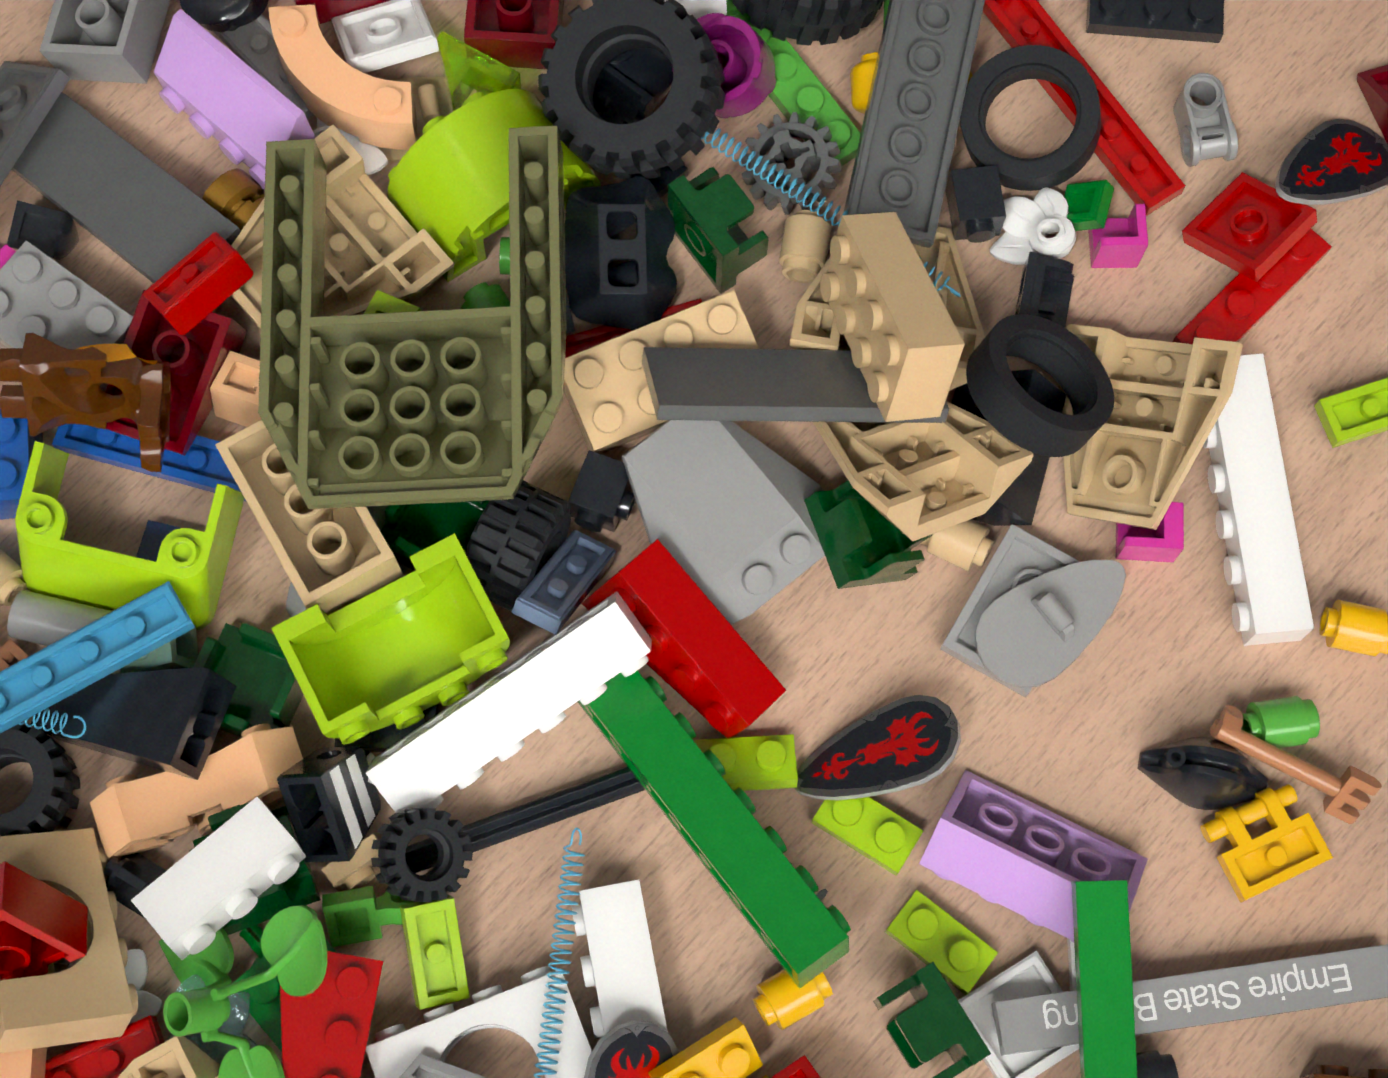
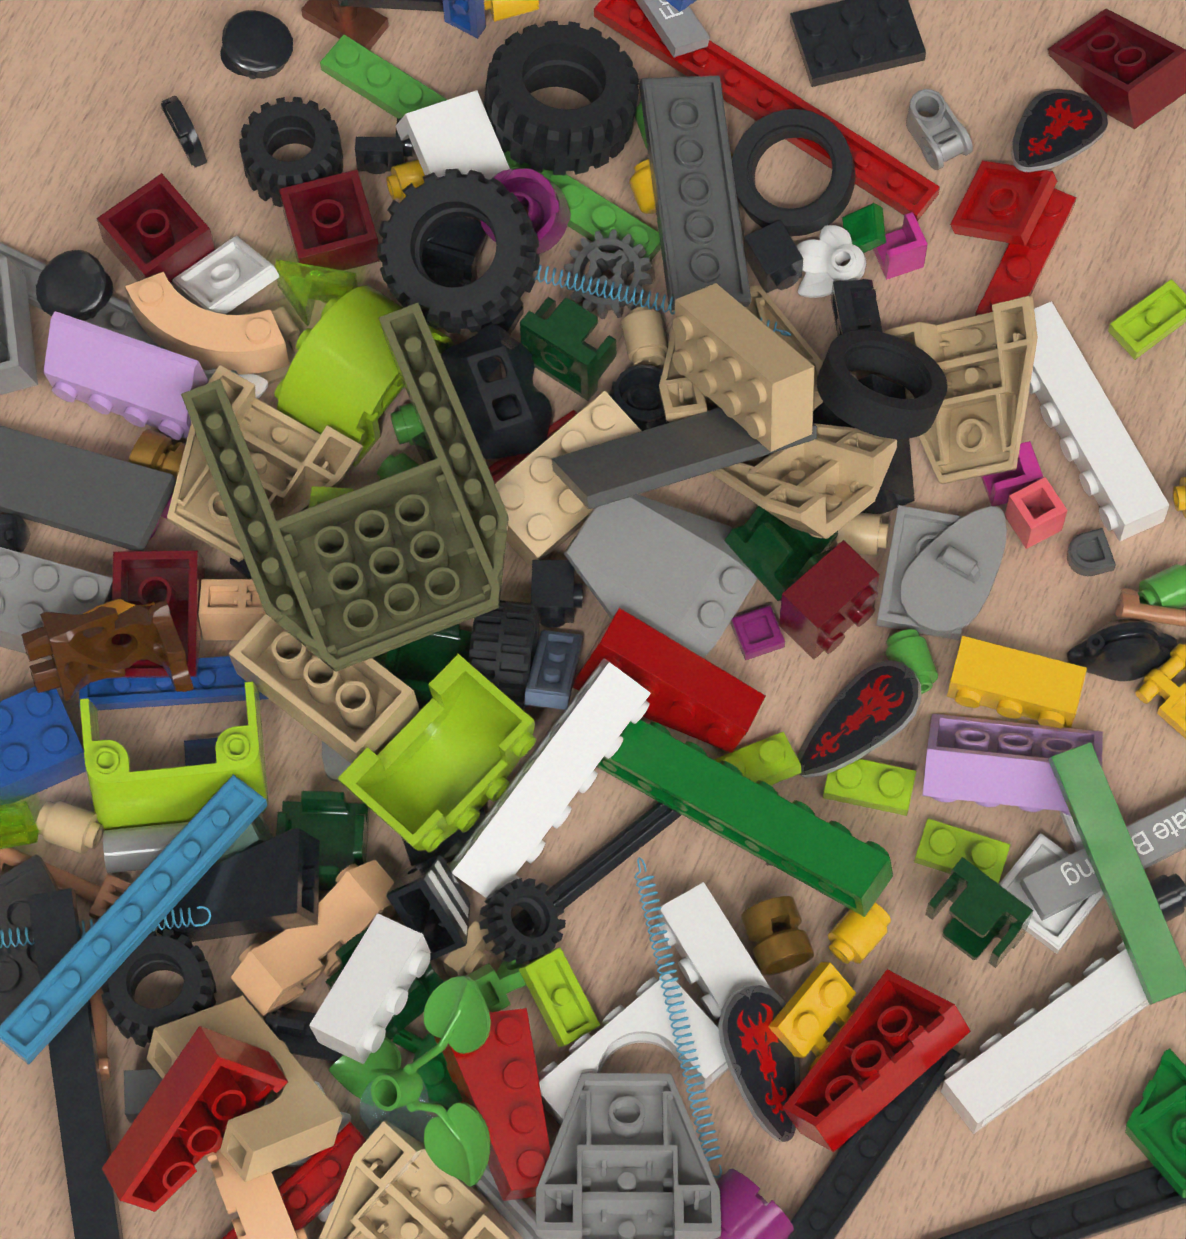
camera: 15 degrees left, 5 degrees down
(199, 283) = (160, 530): red slope -> none
(699, 985) = (777, 935): none -> pearl gold wheel
(772, 308) = (639, 395): none -> black piece
(807, 612) = (757, 632): none -> magenta tile
(896, 606) = (829, 600): none -> dark red brick
(967, 697) = (913, 651): none -> bright green brick
(1071, 771) = (1016, 683): none -> yellow brick
(1161, 585) = (1035, 512): none -> coral brick
(1206, 650) = (1090, 554): none -> dark grey tile

